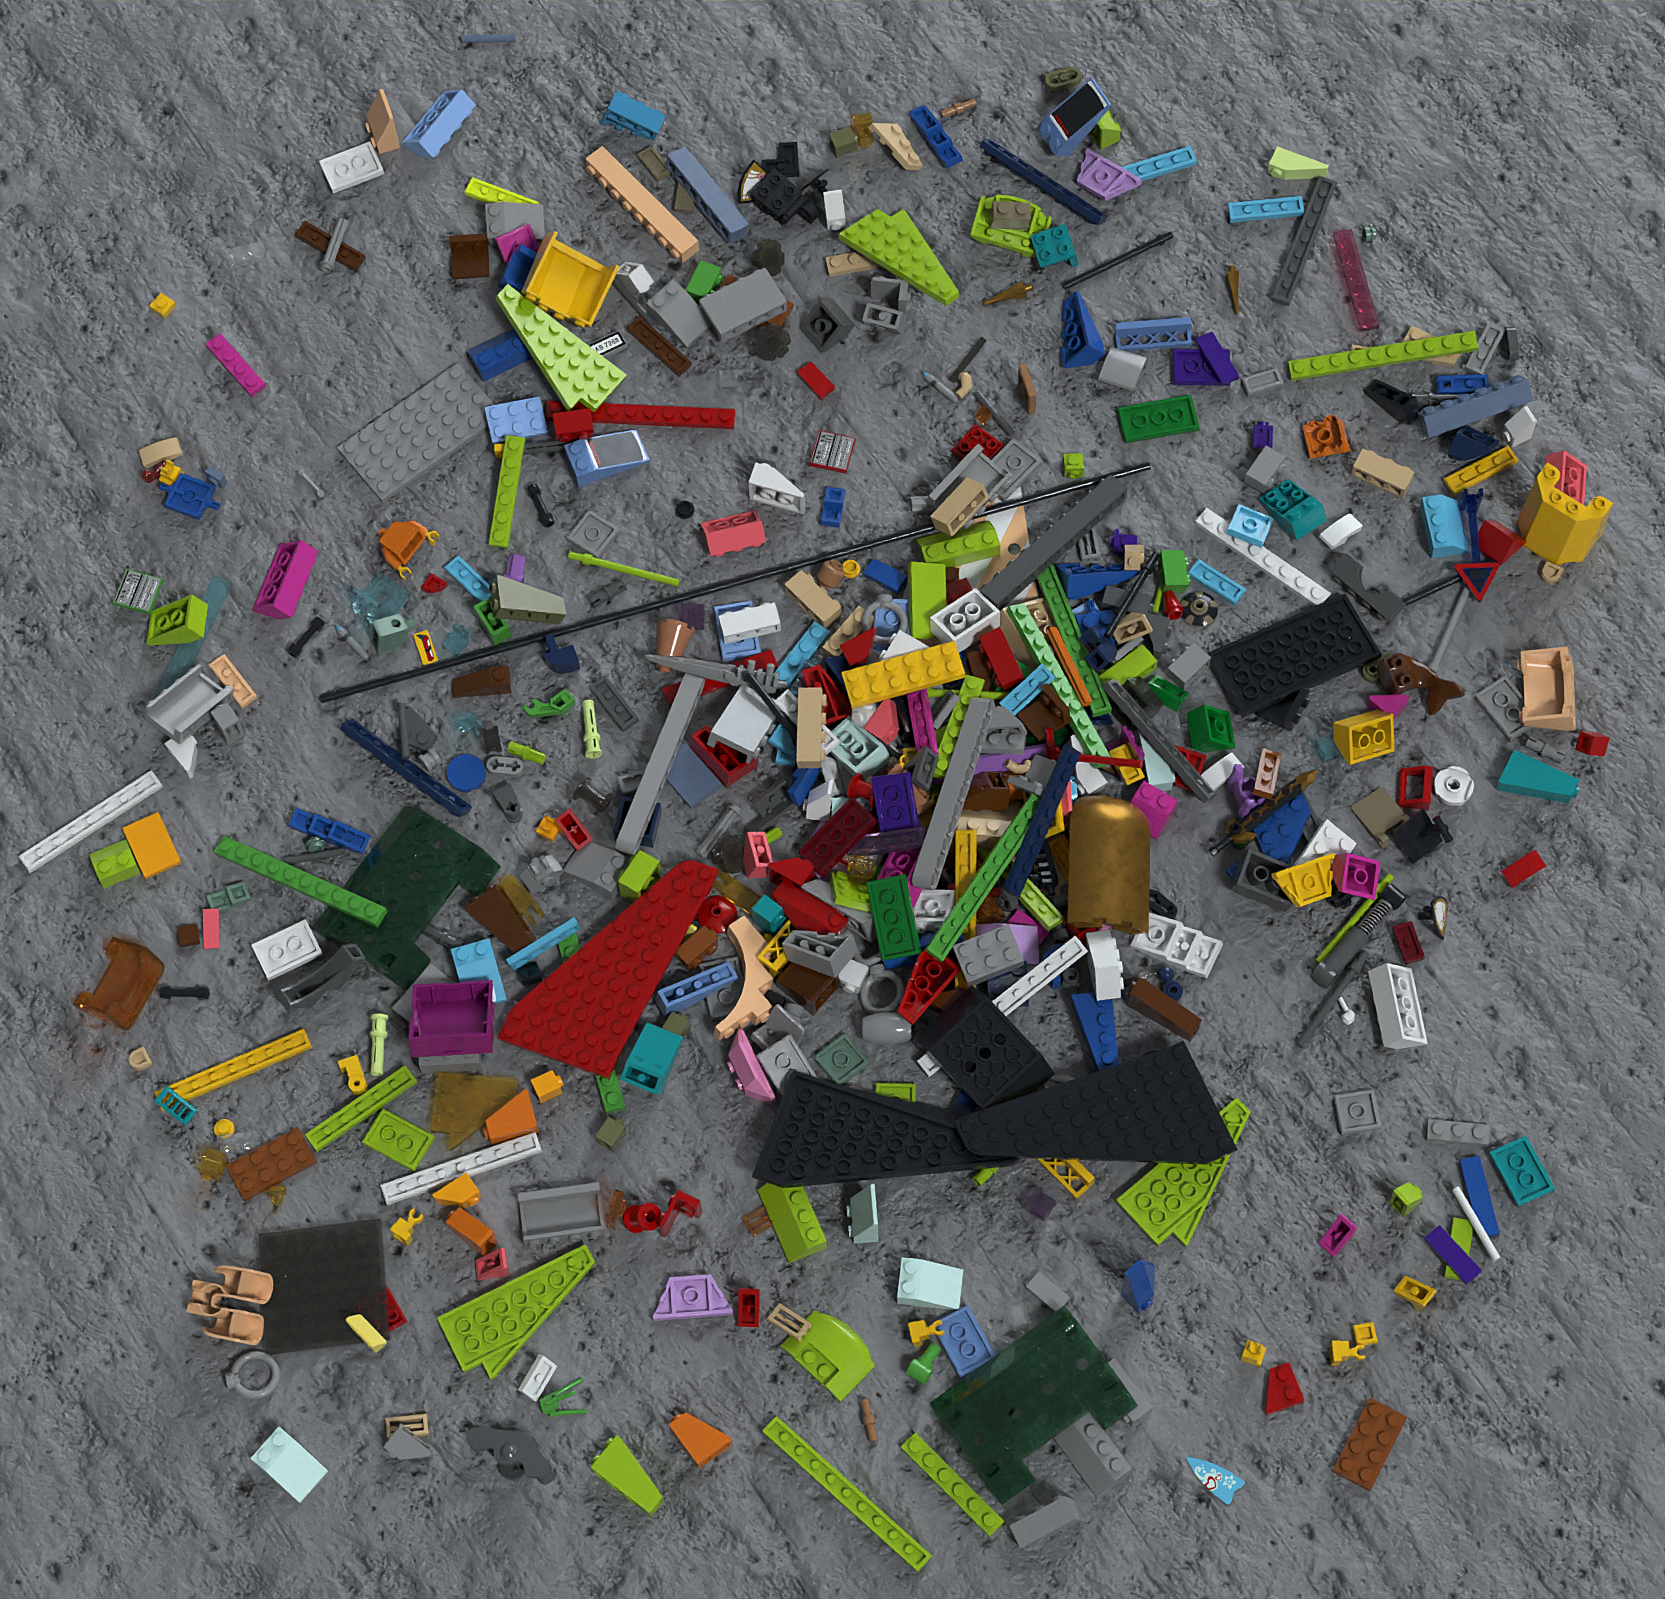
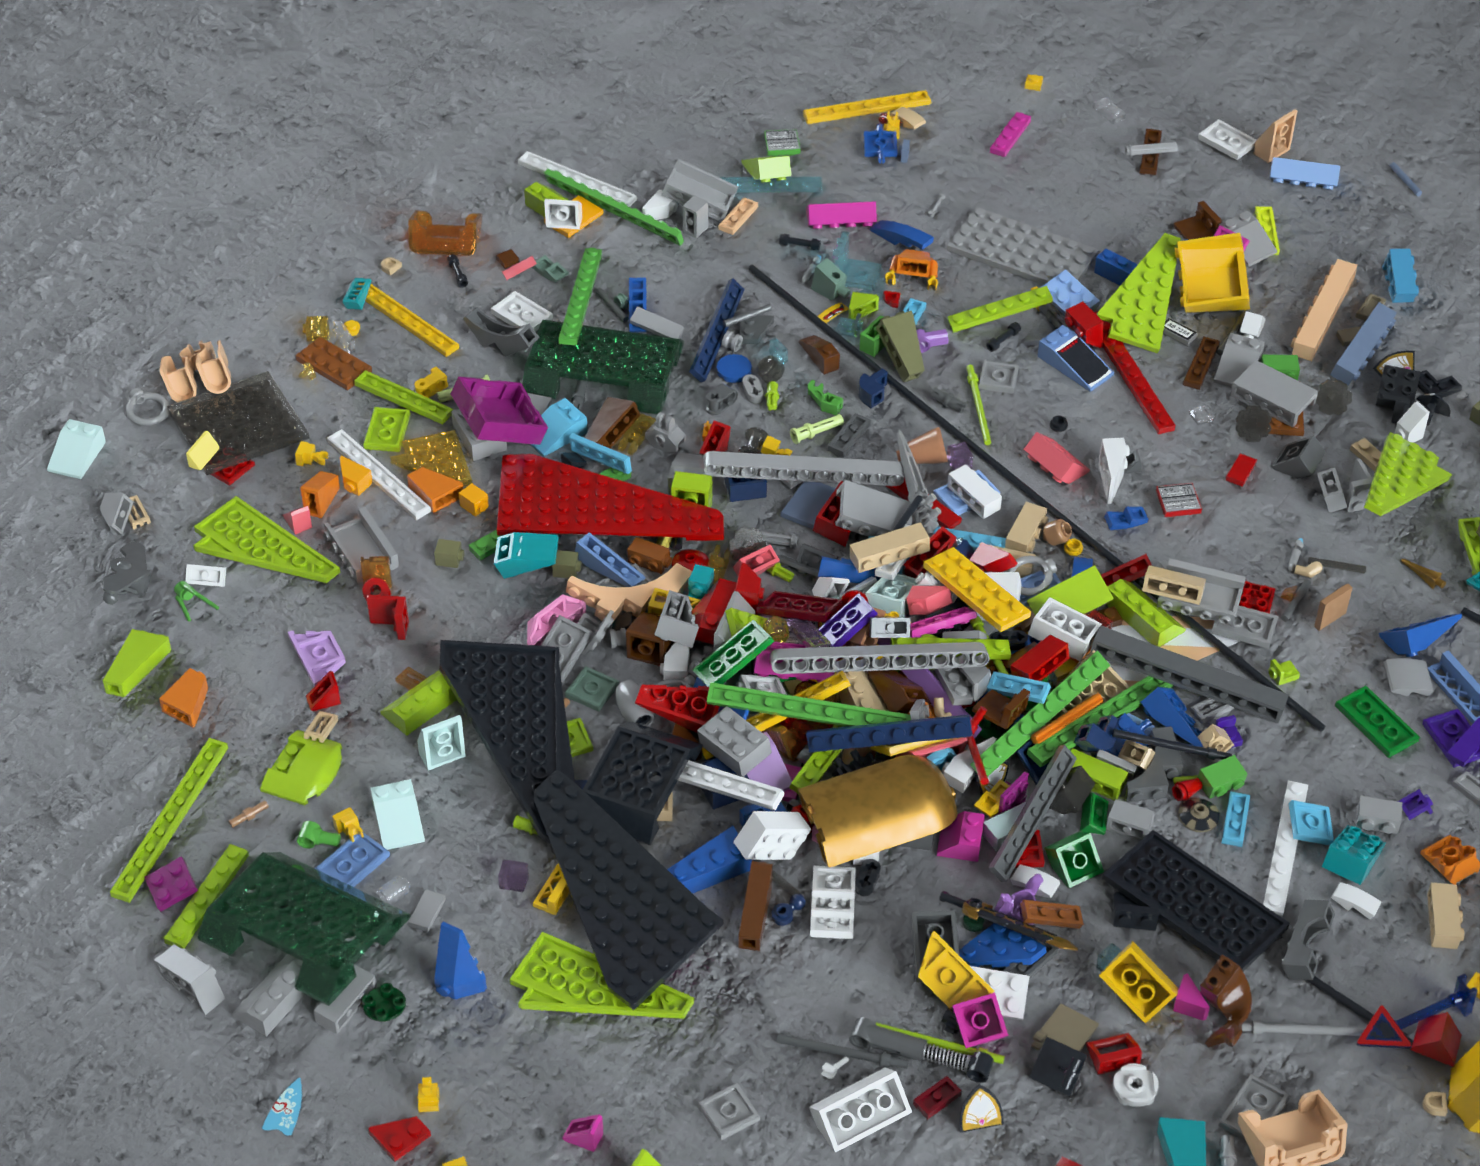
camera: 65 degrees right, 20 degrees down
(117, 485) = (866, 107): none -> yellow tile
(154, 802) = (617, 208): none -> bright green plate
(158, 853) = (563, 214): none -> white slope
(347, 534) = (902, 233): none -> blue slope
(372, 823) = (656, 324): none -> light grey tile
(433, 619) = (863, 304): none -> lime slope
(605, 781) = (772, 446): none -> yellow piece
(904, 539) = (1129, 571): none -> red slope
(928, 1512) = (171, 884): none -> magenta plate
(1139, 1360) = (384, 1003): none -> dark green dish
(1443, 526) = (1420, 983): medium azure slope -> none

